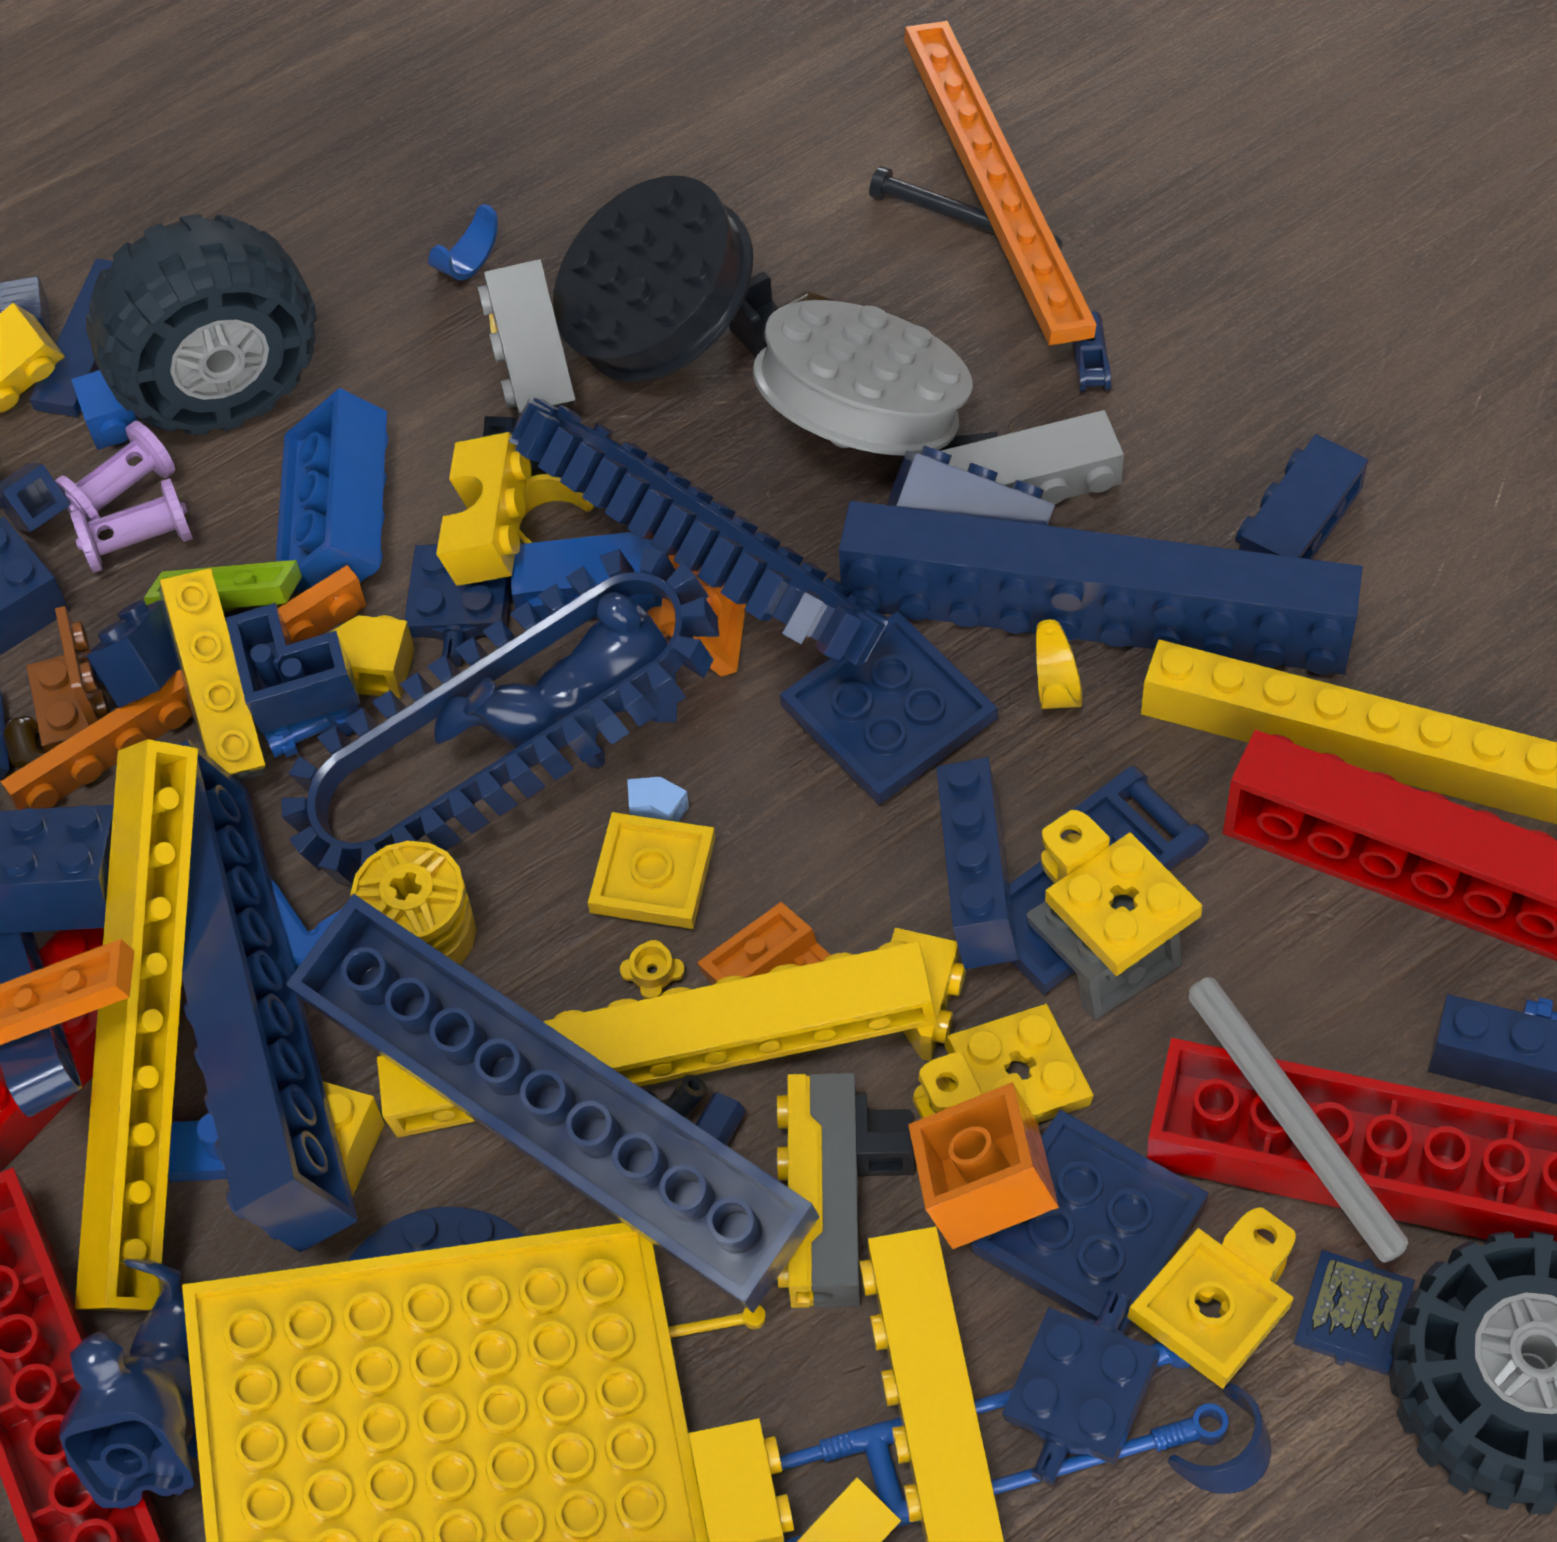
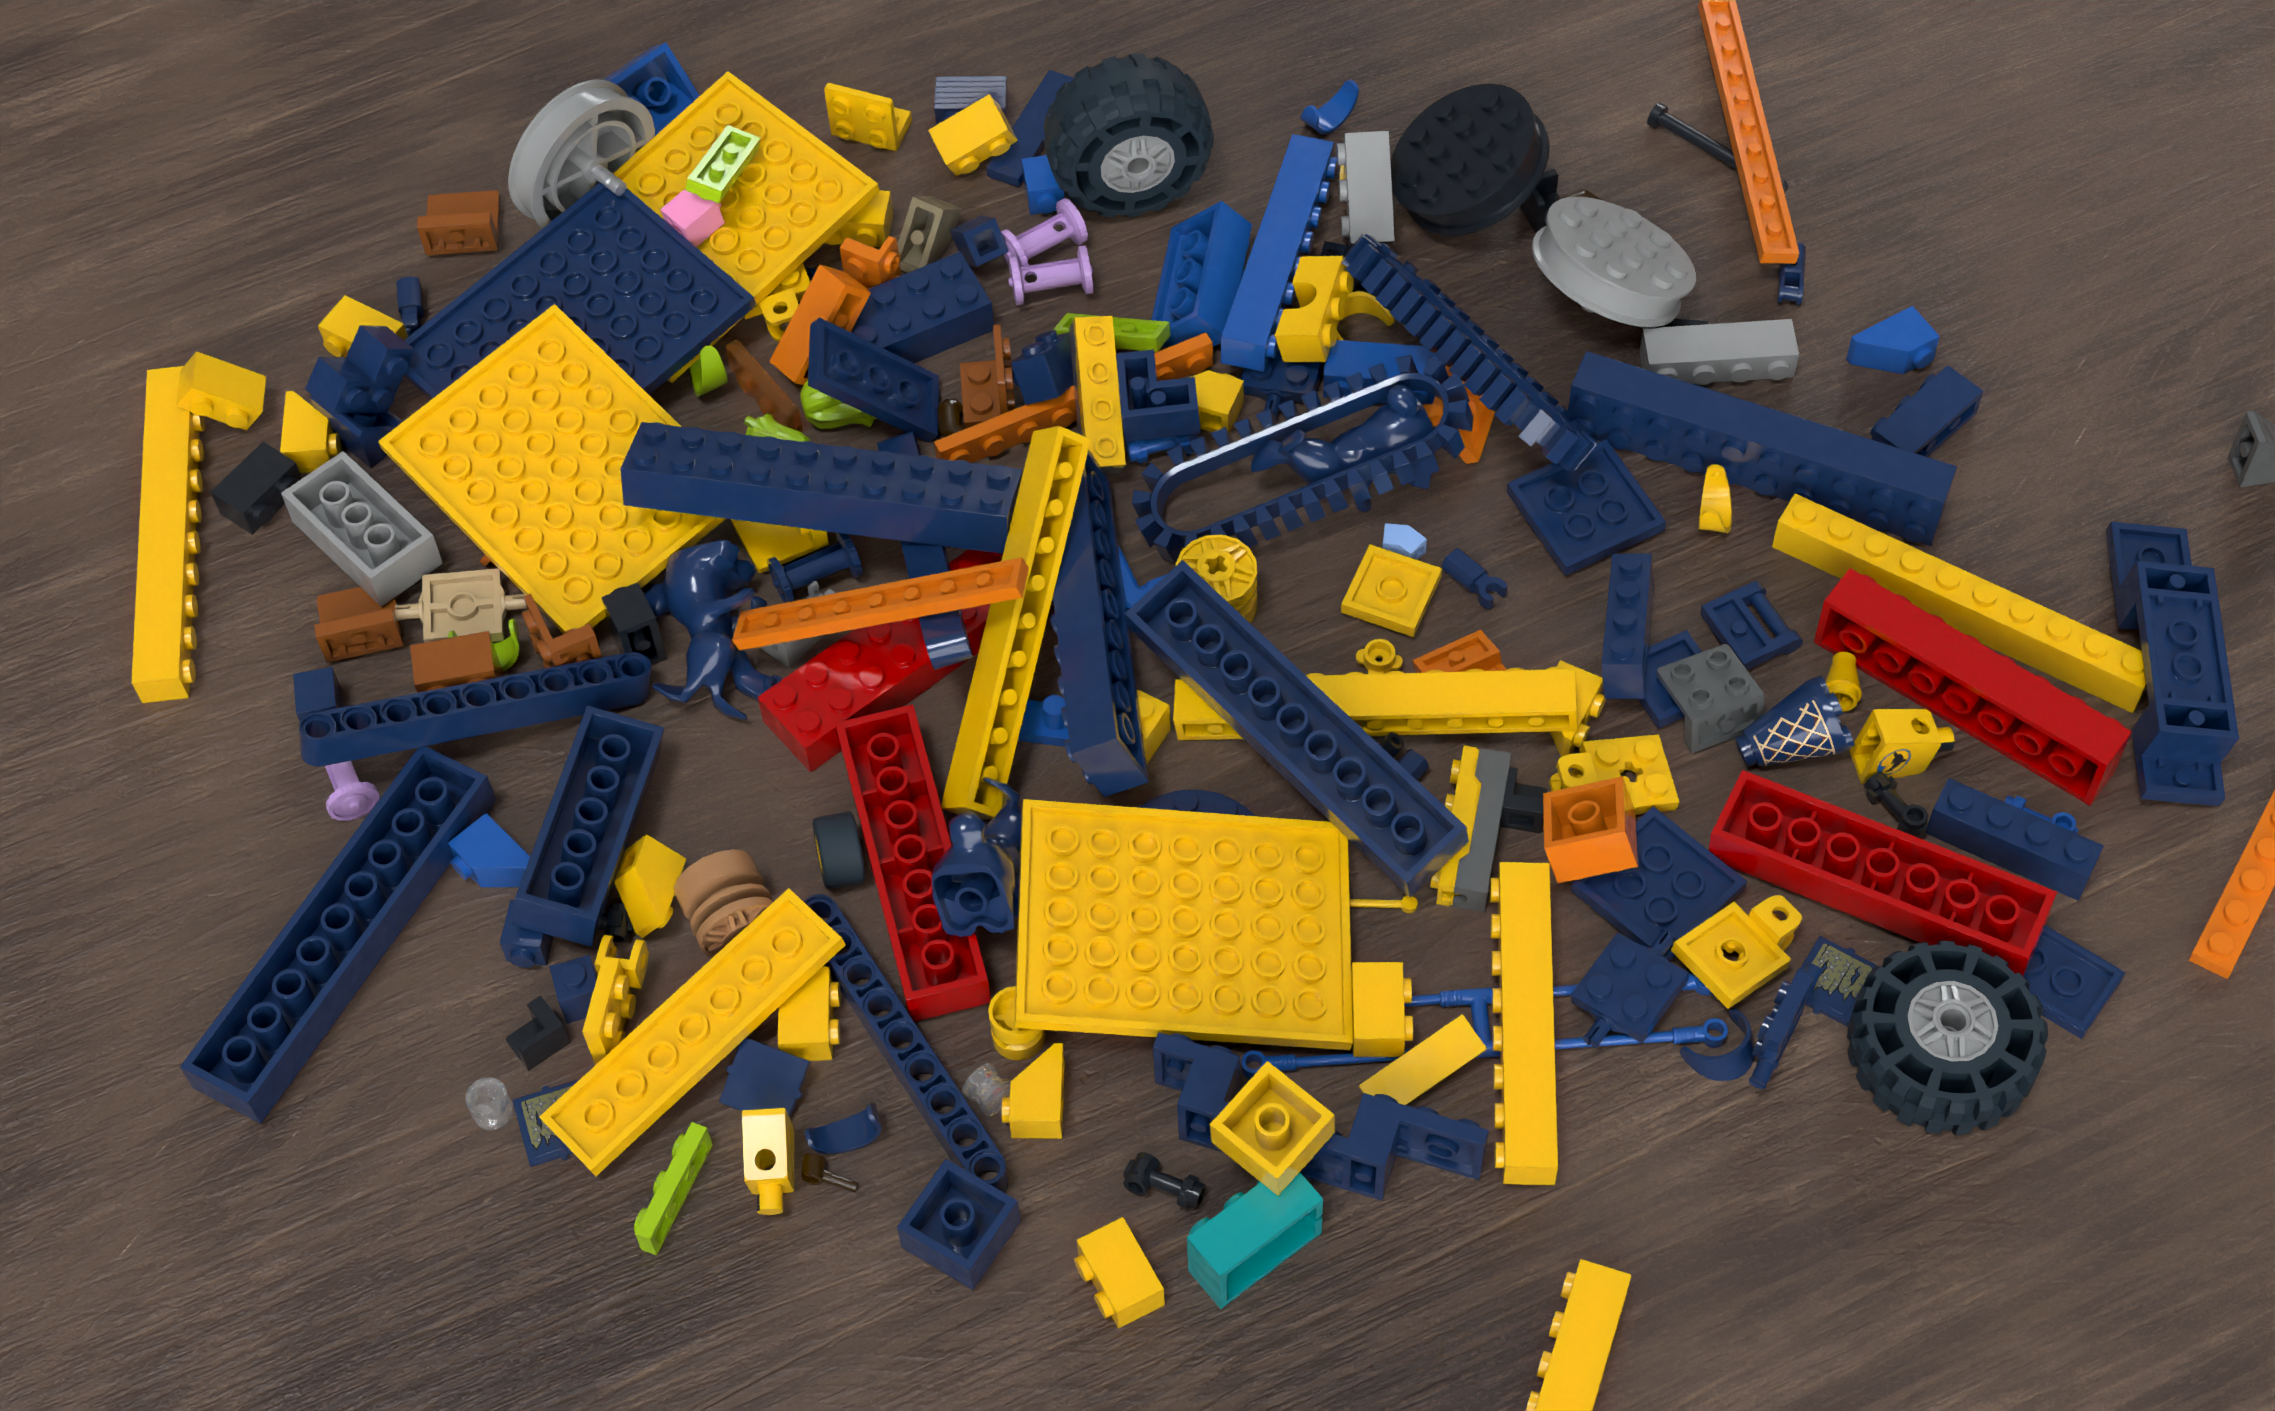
camera: 10 degrees right, 0 degrees up
(420, 453) = (1279, 245): none -> blue brick
(758, 830) = (1473, 577): none -> dark blue bar
(934, 485) = (1650, 350): brick -> none
(1093, 873) = (1708, 647): yellow plate -> none
(1237, 948) = (1797, 728): none -> dark blue cone
(1241, 418) = (1895, 344): none -> blue slope
(1274, 887) = (1844, 680): none -> yellow cone
(1298, 1120) = (1819, 838): light grey axle -> none
(1301, 1400) = (1780, 1025): none -> dark blue plate
(1367, 957) = (1898, 743): none -> yellow torso
(1407, 1056) = (1911, 817): none -> black bar

